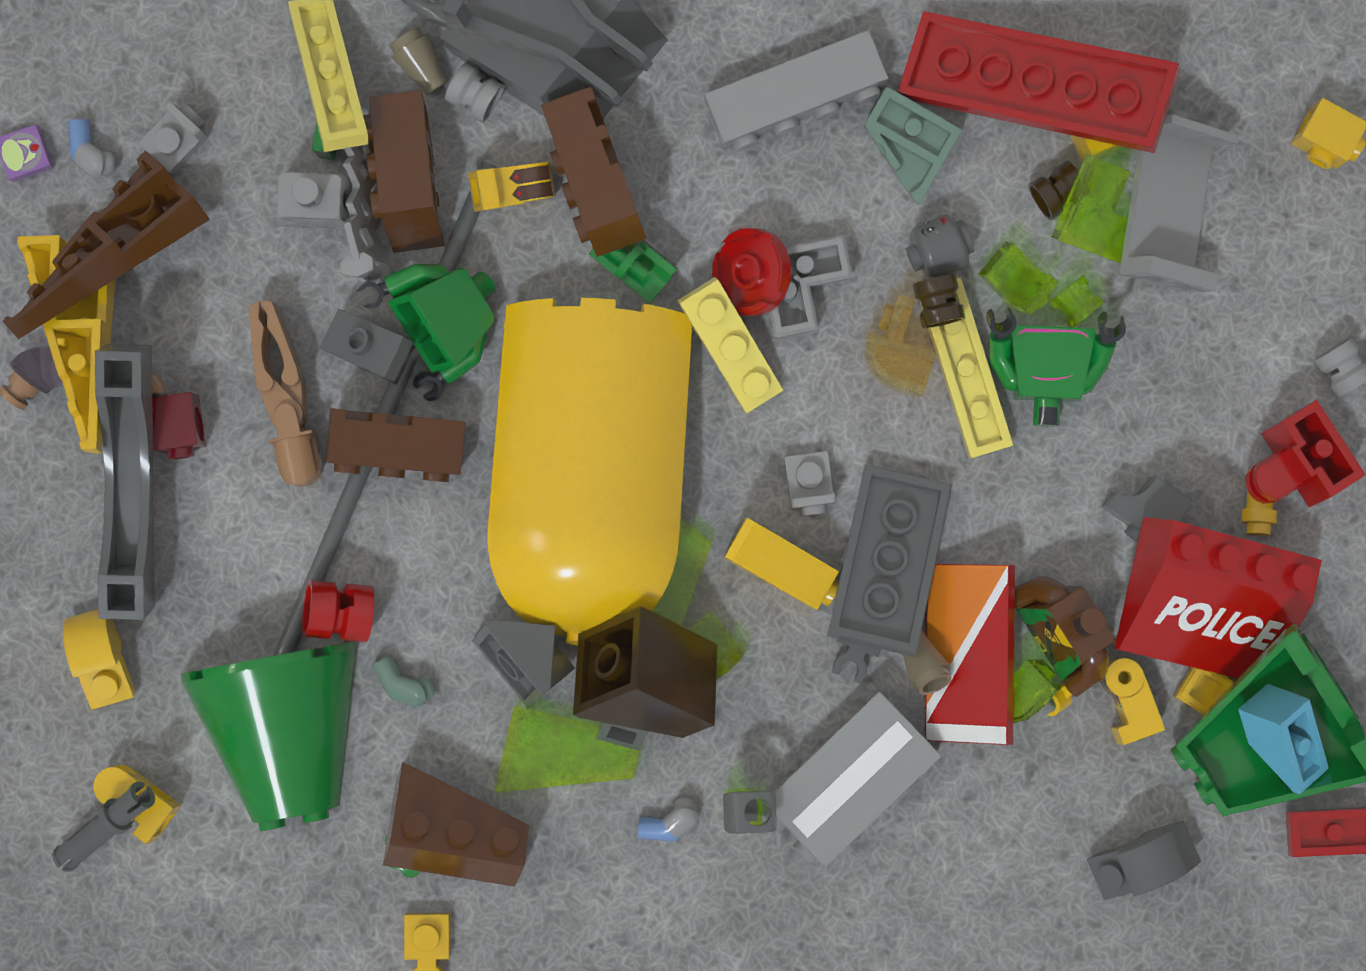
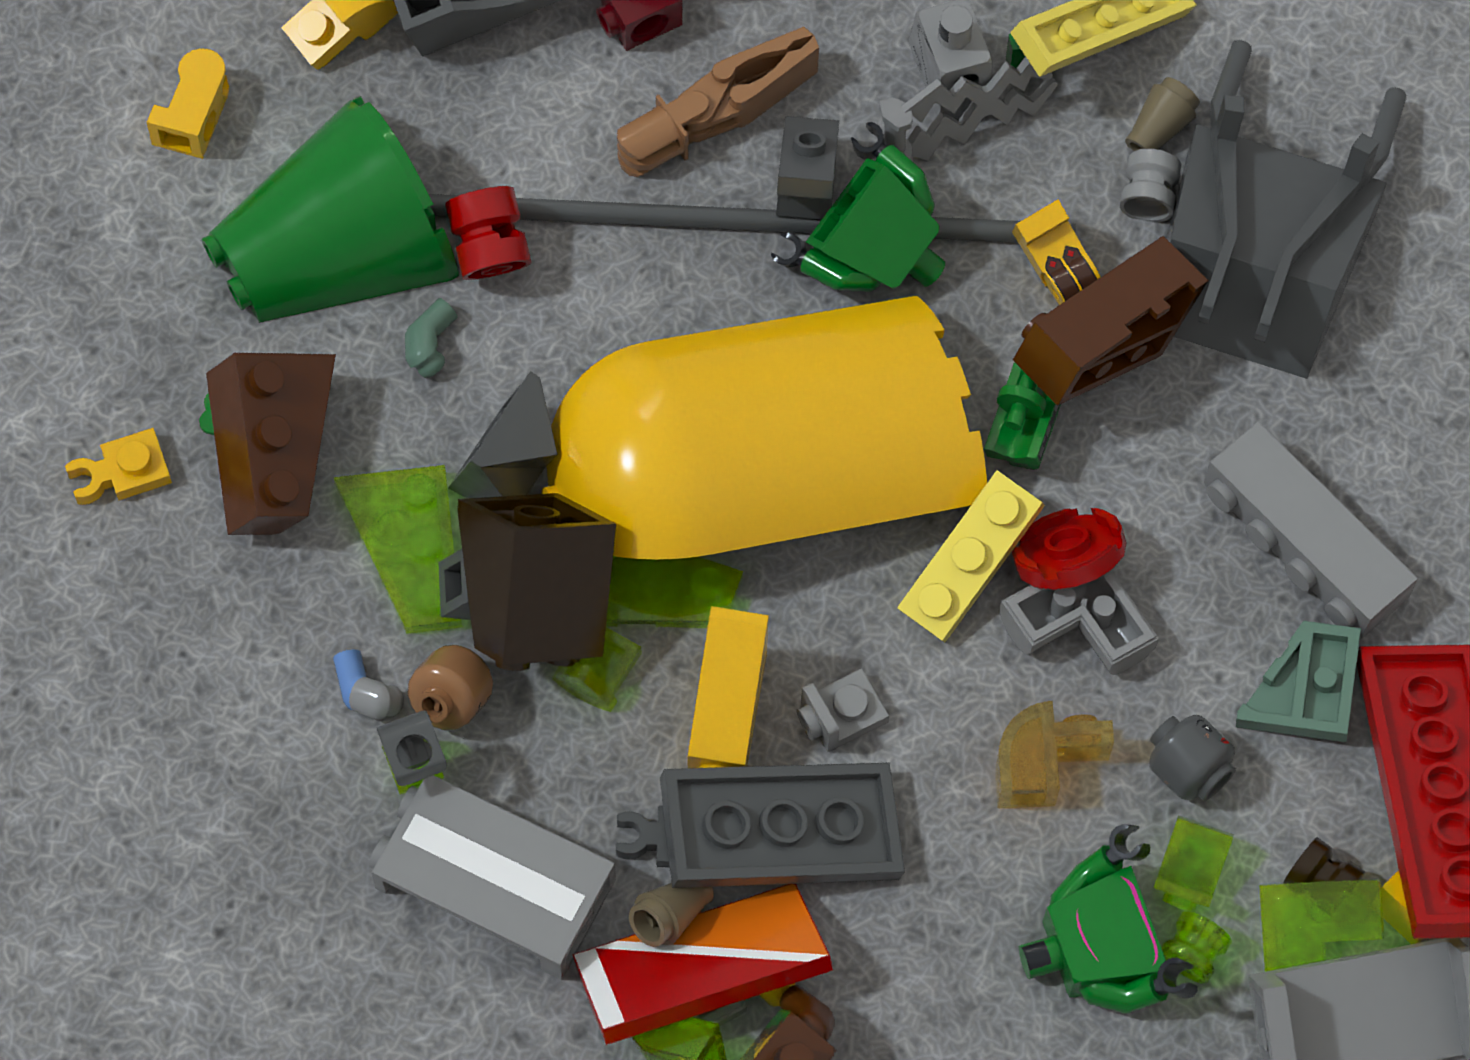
camera: 70 degrees right, 20 degrees down
(113, 819) = (165, 74): dark grey pin -> none
(394, 444) = (705, 221): reddish brown wedge -> none
(403, 171) = (1023, 135): reddish brown wedge -> none
(698, 763) = (451, 686): none -> medium nougat head
(939, 301) = (1123, 768): dark brown wheel -> none
(970, 383) = (1054, 843): light yellow plate -> none

